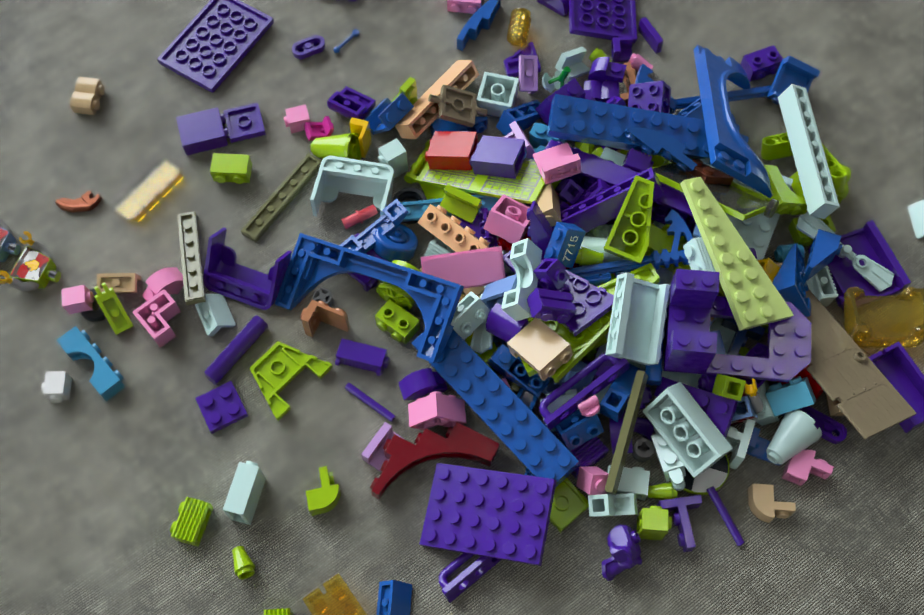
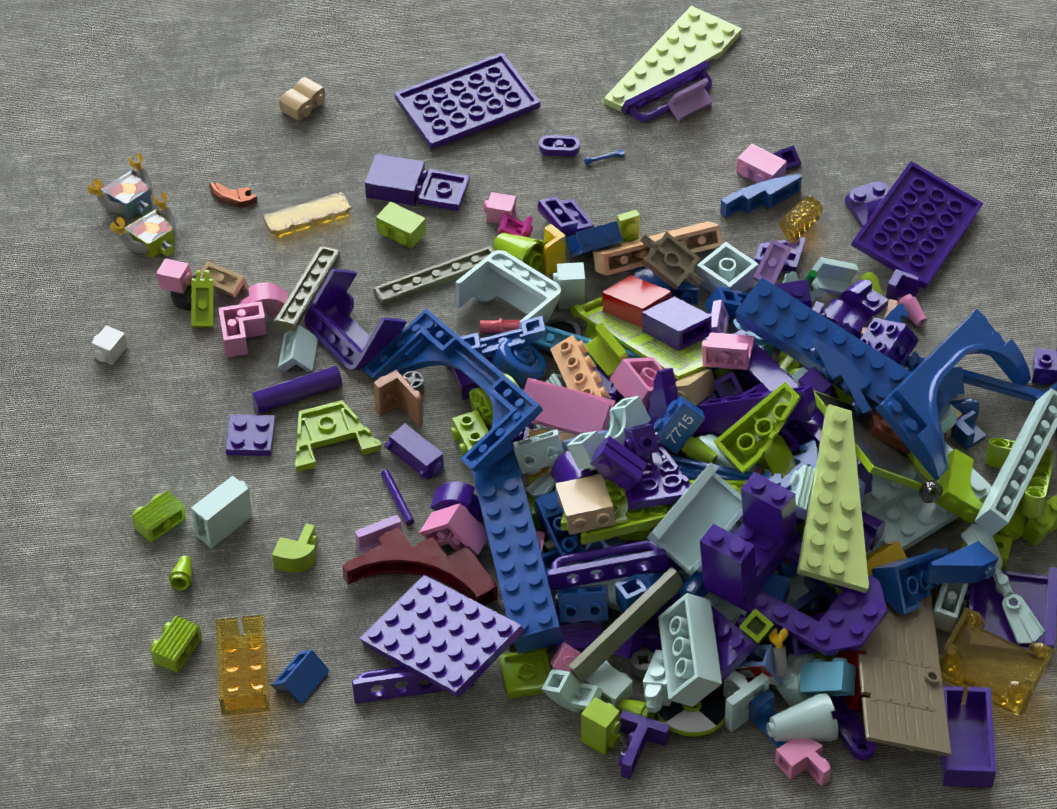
camera: 30 degrees right, 15 degrees down
(103, 379) = (155, 358): dark azure arch -> none
(589, 407) = (601, 580): bright pink plate -> none
(624, 551) = (554, 737): dark purple head -> none
(650, 35) = (946, 286): dark purple tile -> none
(725, 516) = (685, 760): dark purple bar -> none
(763, 505) = (735, 772): tan brick -> none

